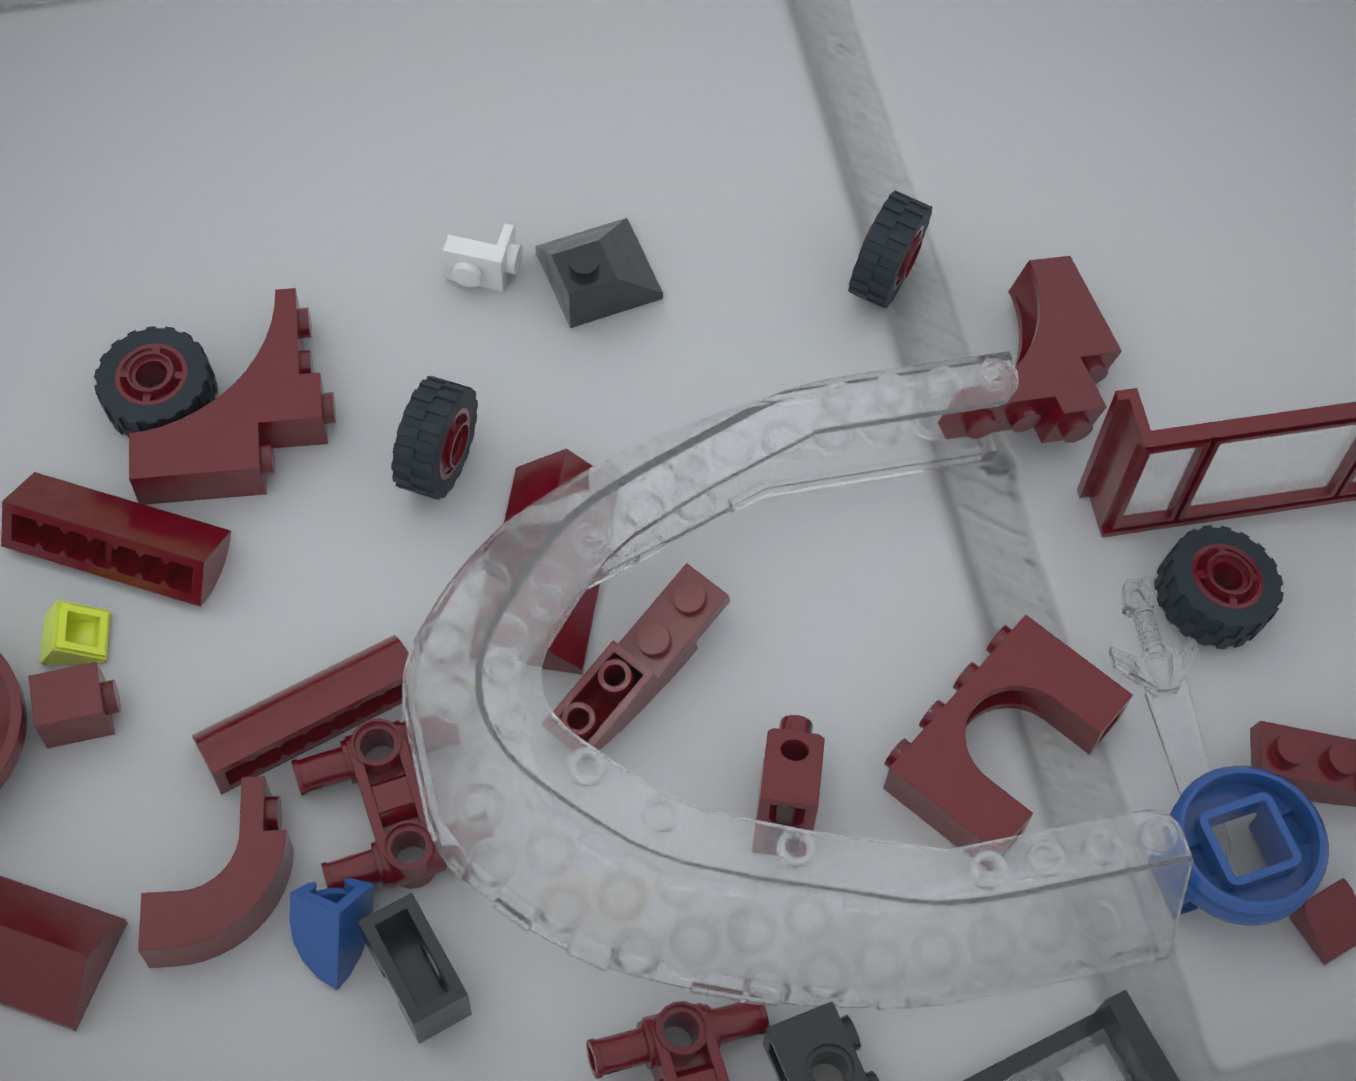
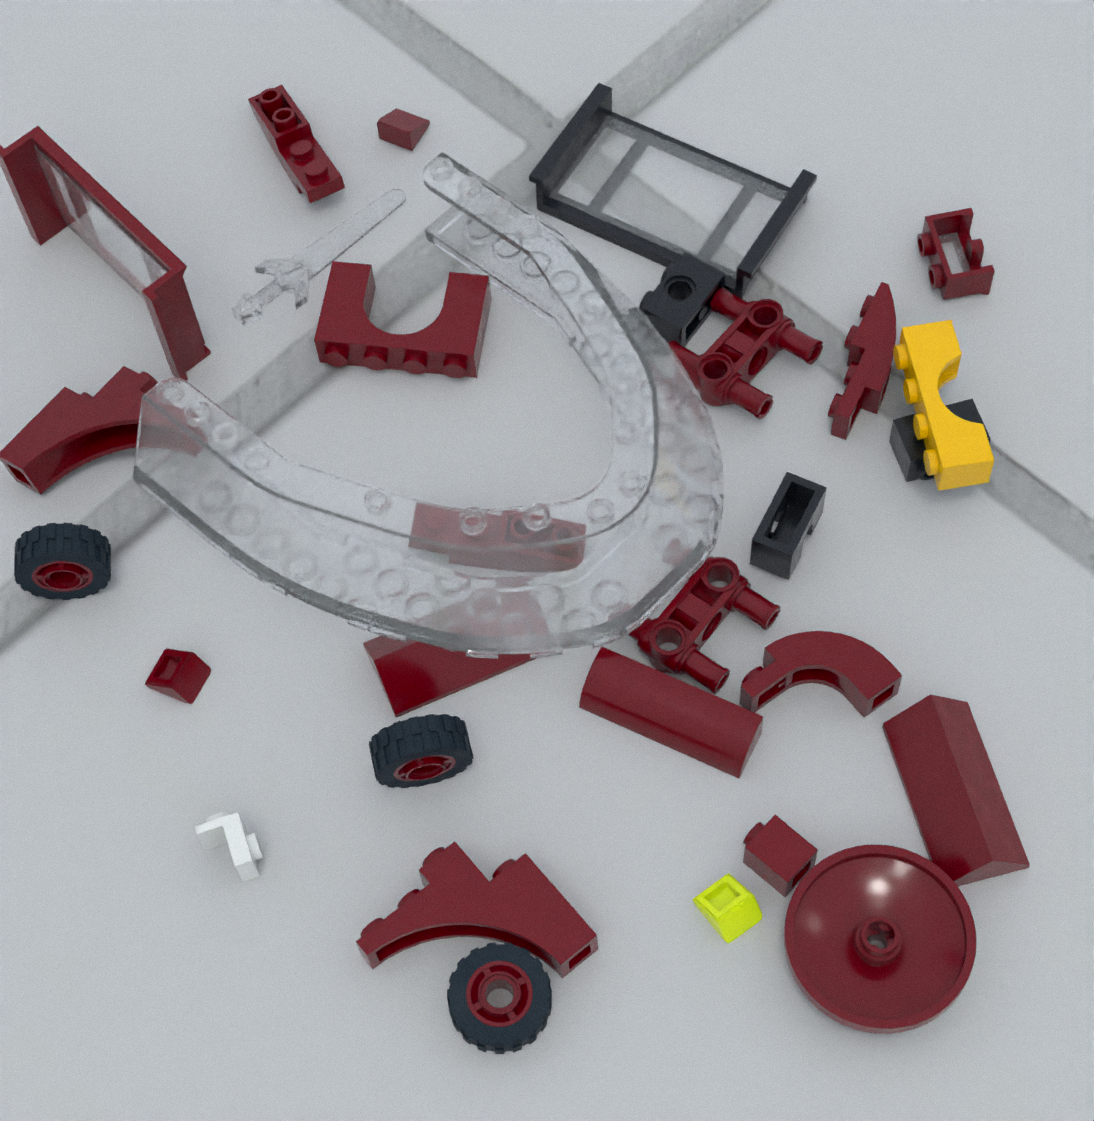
camera: 115 degrees left, 0 degrees up
(114, 538) = (639, 932): dark red brick -> none
(328, 927) = (797, 590): blue brick -> none
(599, 272) = (189, 767): black slope -> none
(705, 311) = (179, 675): none -> dark red slope
(791, 774) = (522, 403): dark red torso -> none
(1218, 587) = (219, 262): black wheel -> none
(1284, 829) = (372, 154): blue piece -> none

